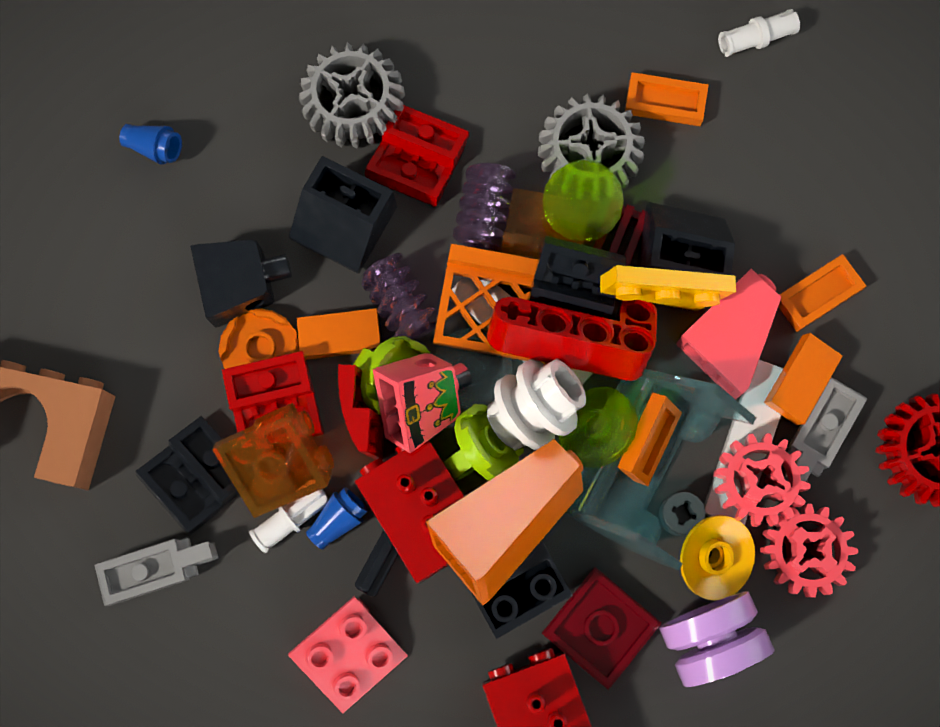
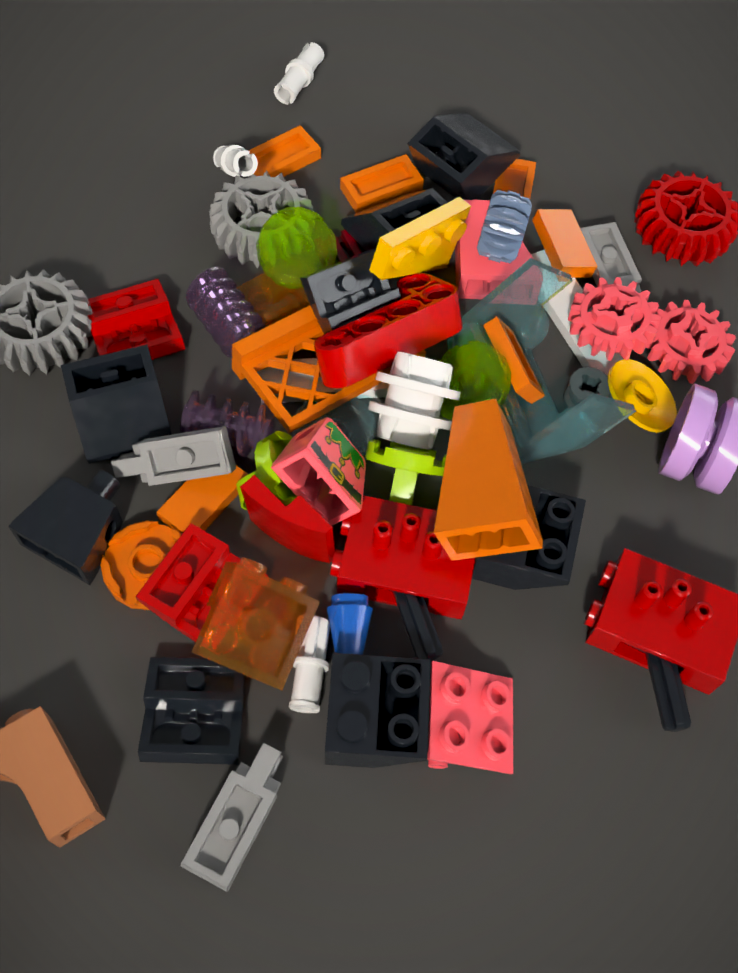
camera: 55 degrees left, 15 degrees down
(290, 591) = (377, 711): none -> black slope
(341, 294) = (178, 457): none -> light grey hinge
(601, 628) = (621, 516): dark red tile -> none
(615, 80) = (235, 160): none -> white pin
(721, 193) = (381, 183): none -> orange tile
(744, 332) = (504, 226): none -> sand blue gear
(806, 228) = (461, 154): none -> black slope

